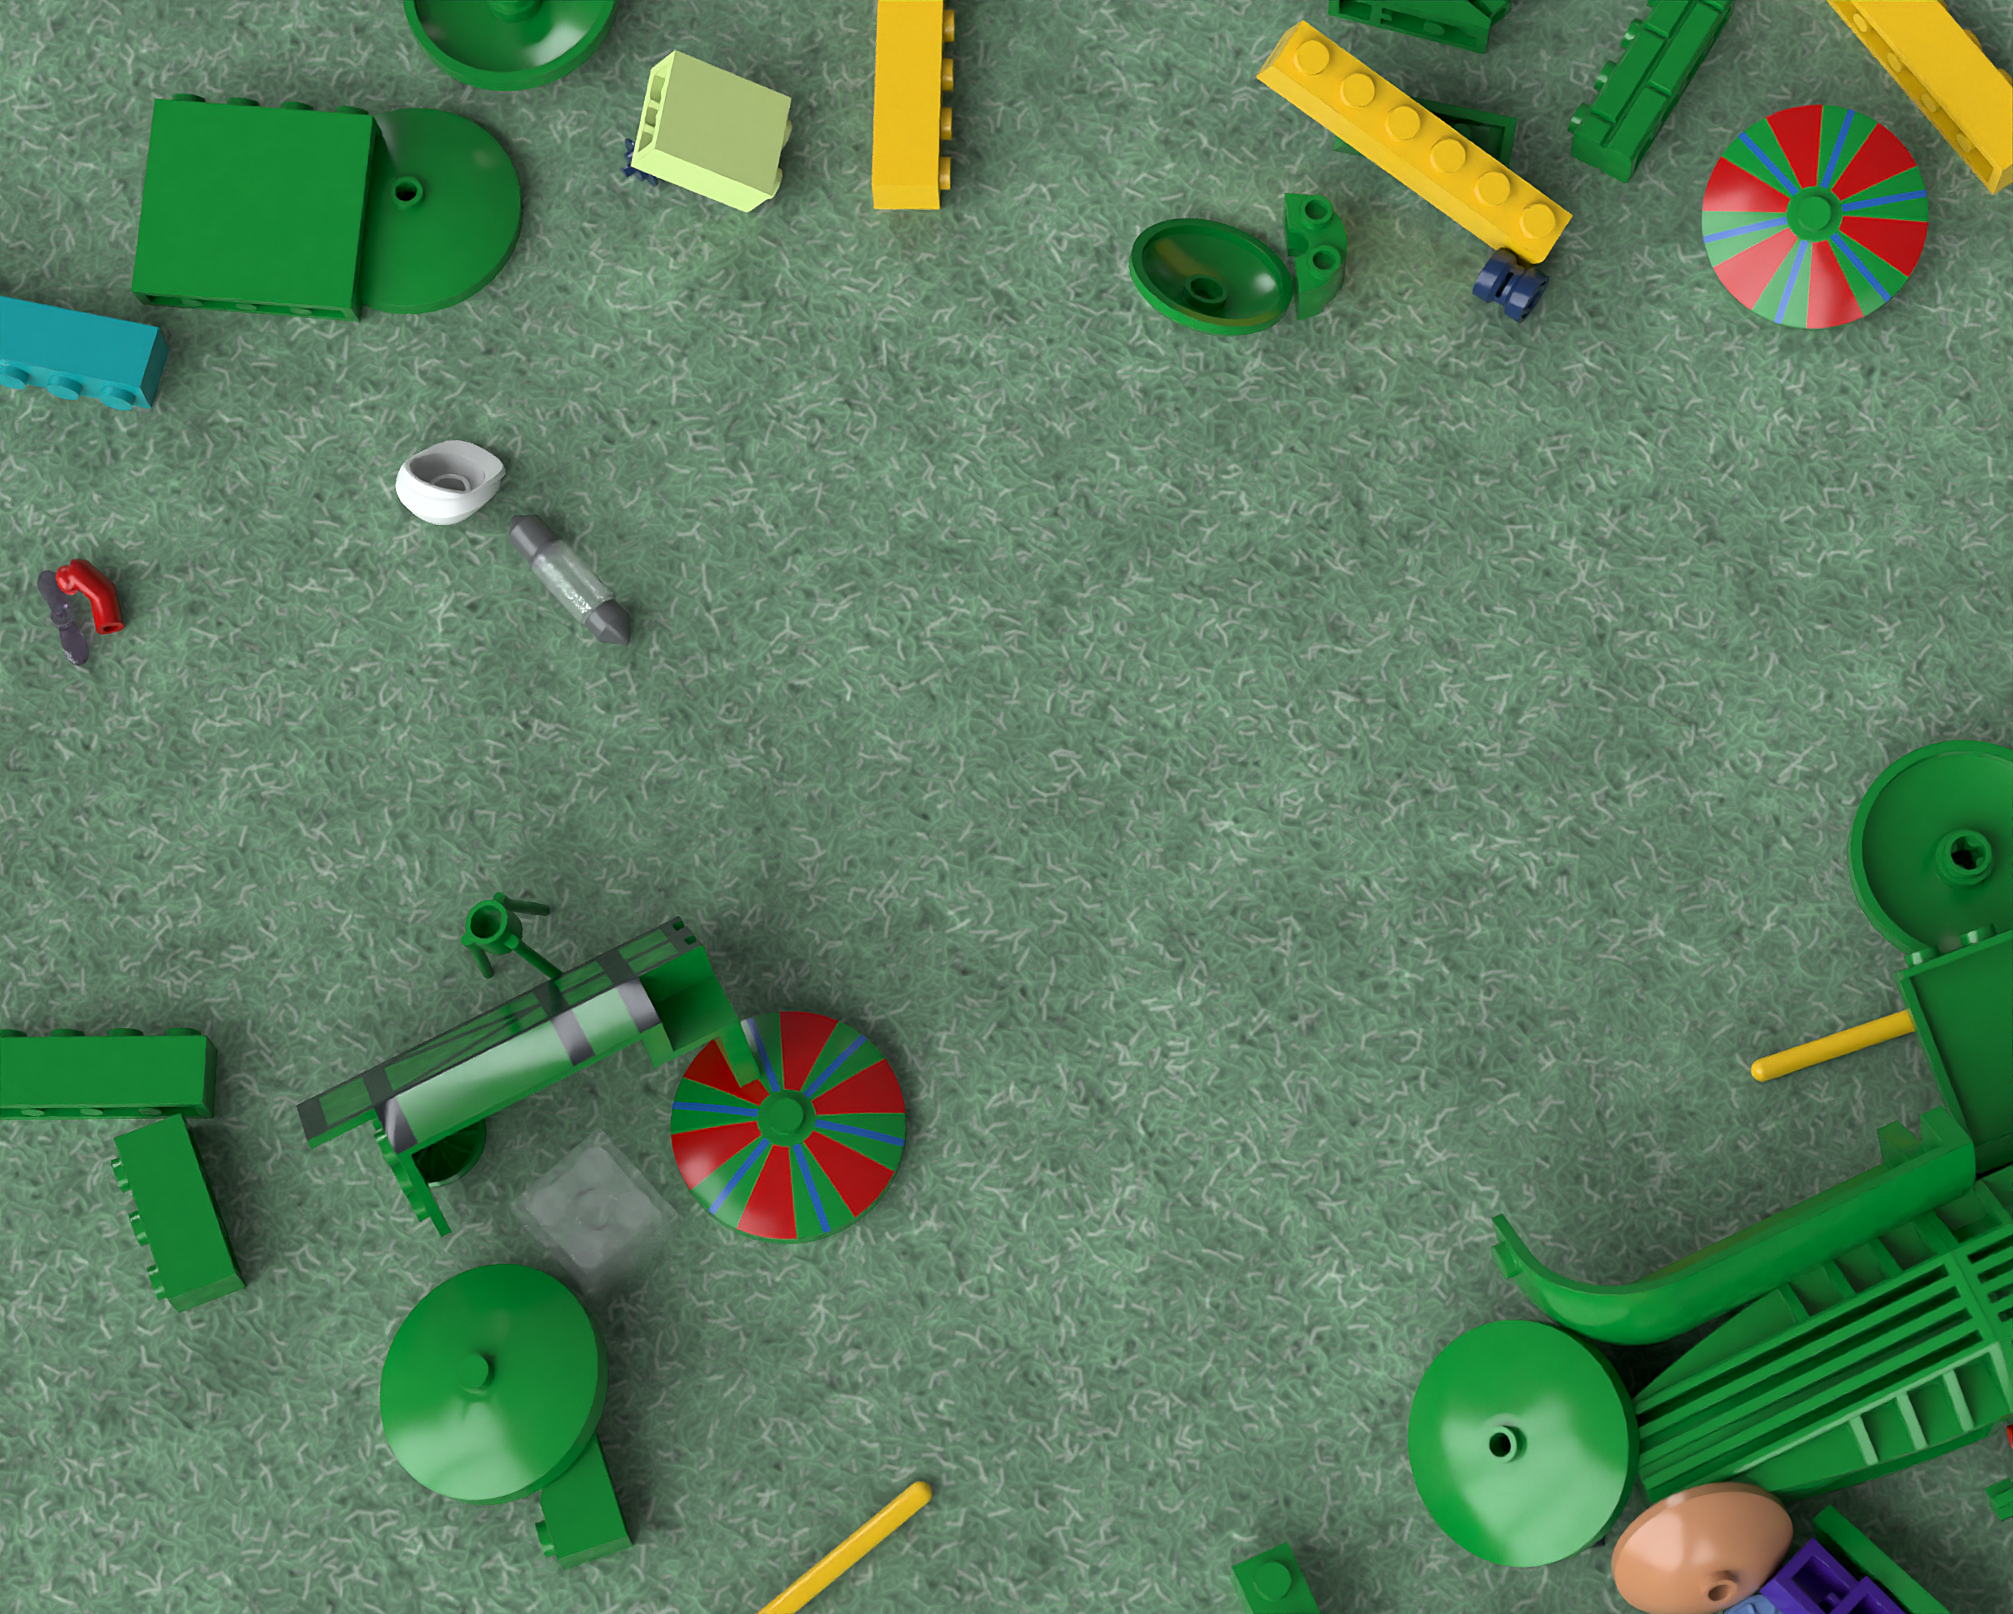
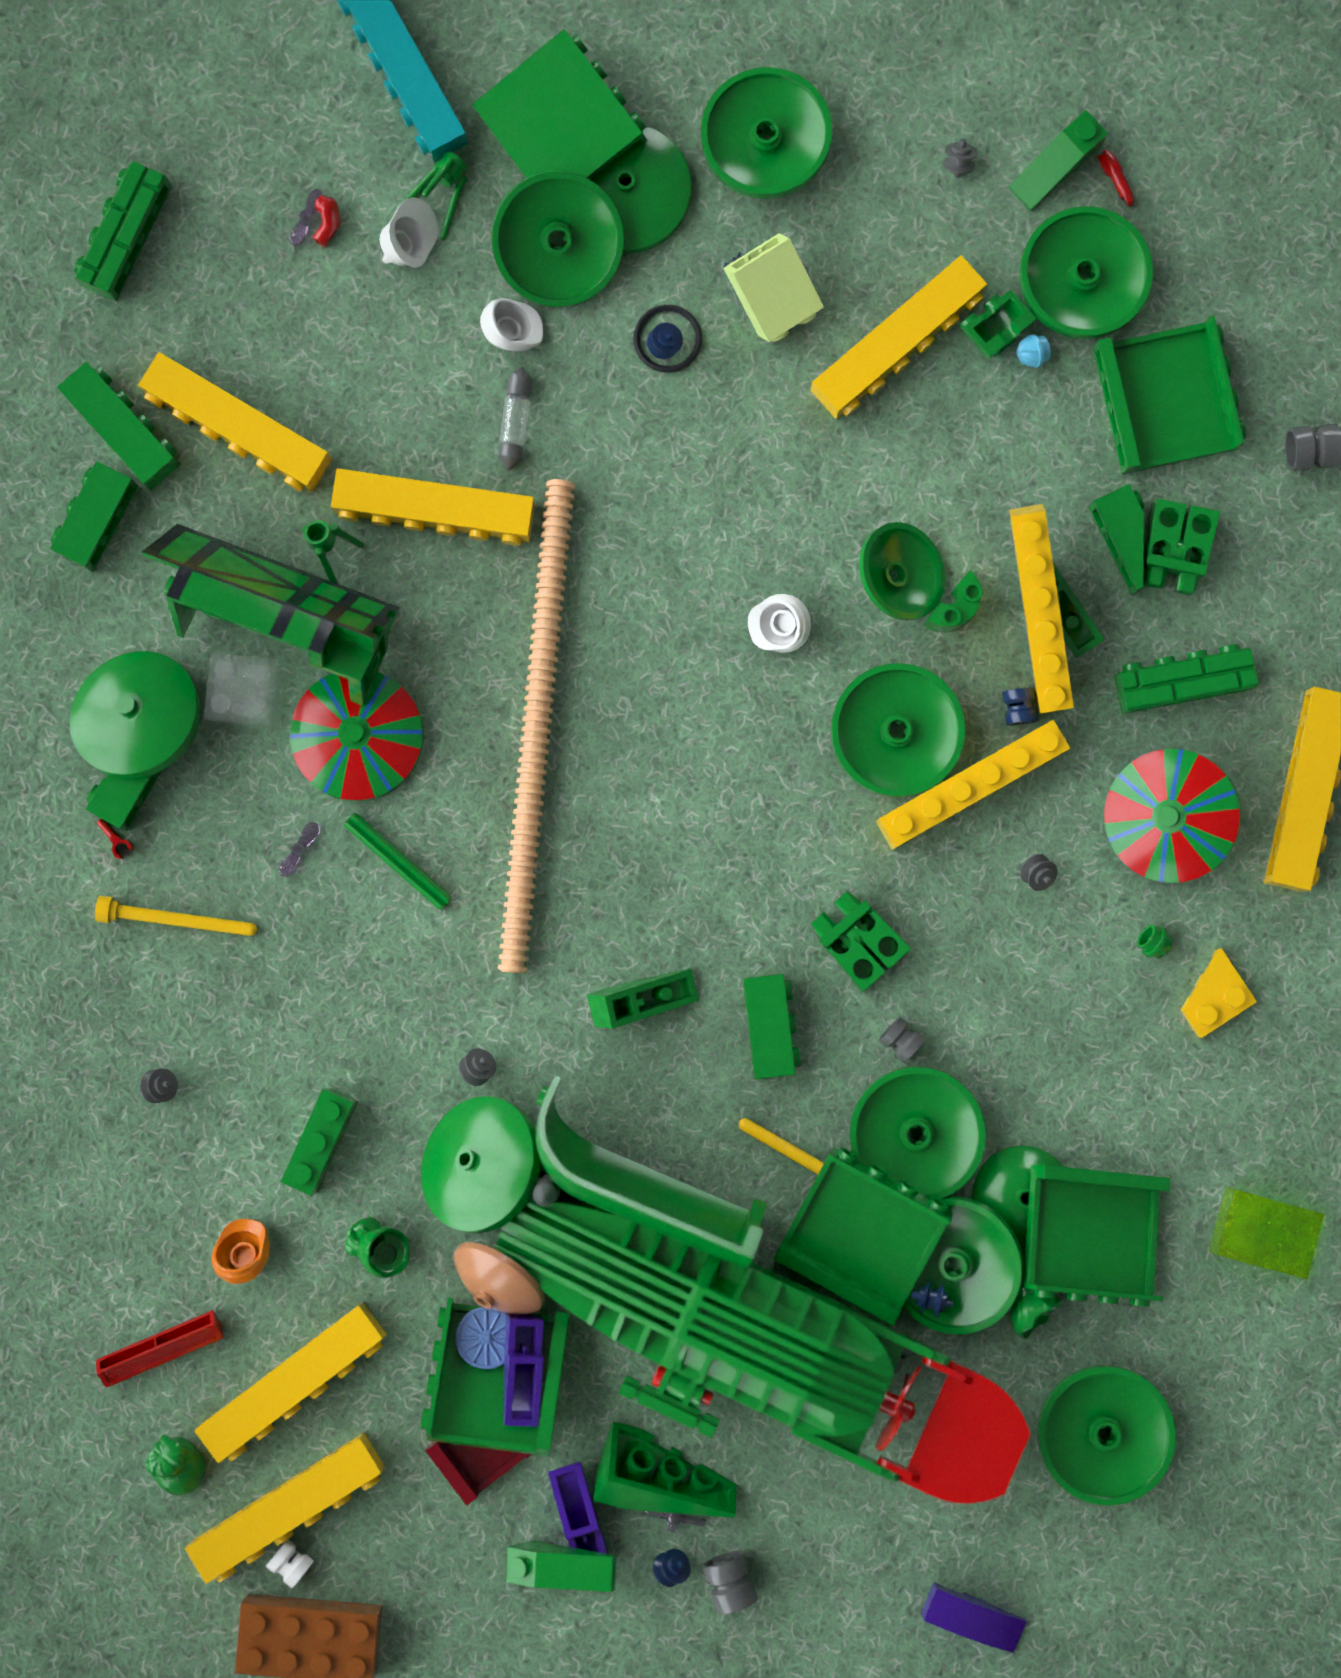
camera: 45 degrees right, 15 degrees up
(183, 400) = (447, 172): none -> green plant
(213, 508) = (409, 234): none -> white piece
(234, 926) = (234, 422): none -> yellow brick
(399, 329) = (557, 238): none -> green dish
(585, 770) = (433, 506): none -> yellow brick
(629, 1569) = (114, 838): none -> red hand
(649, 317) = (664, 340): none -> dark blue wheel
(650, 365) = (669, 308): none -> black tyre
(871, 1334) = (299, 849): none -> piece
(997, 890) = (536, 725): none -> light nougat piece
(1007, 1217) = (398, 861): none -> green axle
(1139, 478) = (779, 623): none -> white hat
(1380, 1346) = (477, 1067): none -> dark grey wheel
(1409, 448) = (897, 730): none -> green dish
(1476, 1056) = (642, 998): none -> green slope
(1560, 421) = (972, 784): none -> yellow brick
(1637, 1365) = (546, 1190): none -> dark grey piece
(1646, 720) = (849, 937): none -> green hips
(1657, 924) = (770, 1026): none -> green brick
(1745, 435) = (1038, 872): none -> dark grey wheel
(1820, 776) = (903, 1041): none -> dark grey wheel
(1958, 373) = (1155, 941): none -> green plate

